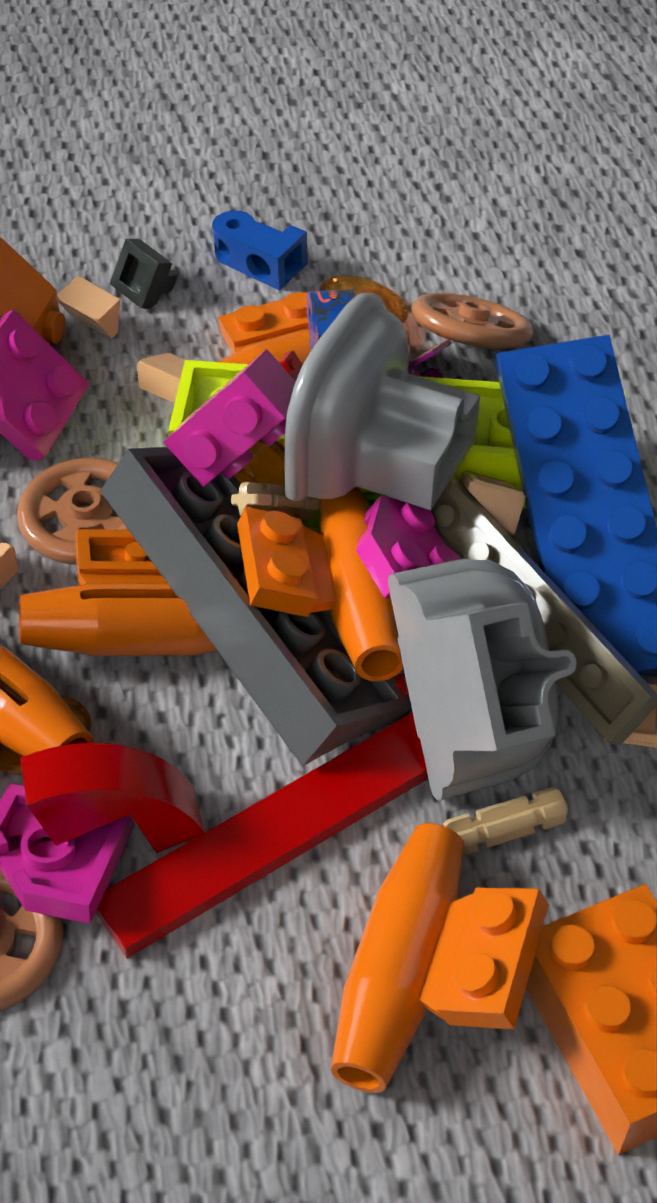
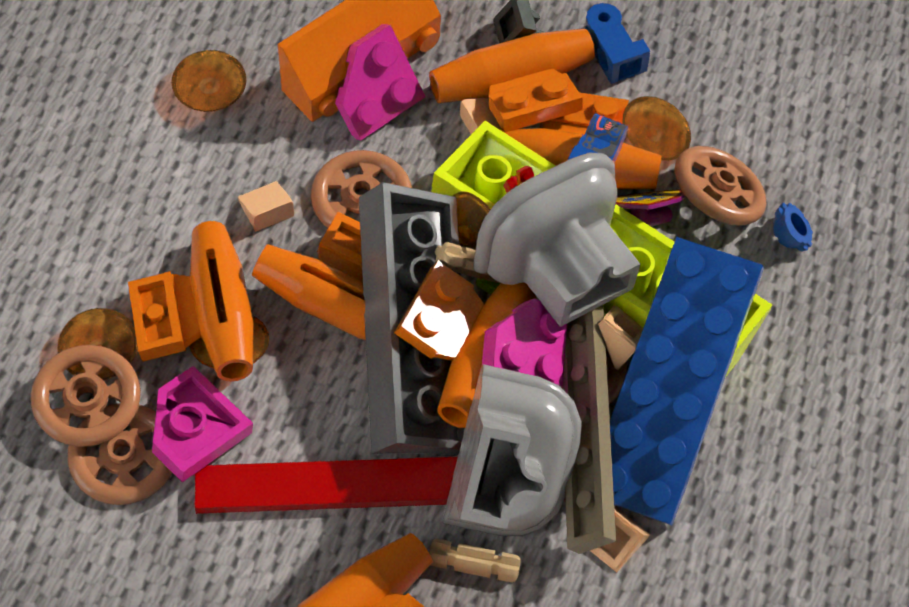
camera: 30 degrees right, 10 degrees up
(91, 305) = (457, 34): light nougat slope -> none
(97, 783) = (232, 399): red brick -> none
(188, 309) = (519, 76): none -> orange plate
(233, 420) = (462, 196): dark pink brick -> none
(564, 328) = (792, 228): none -> blue animal

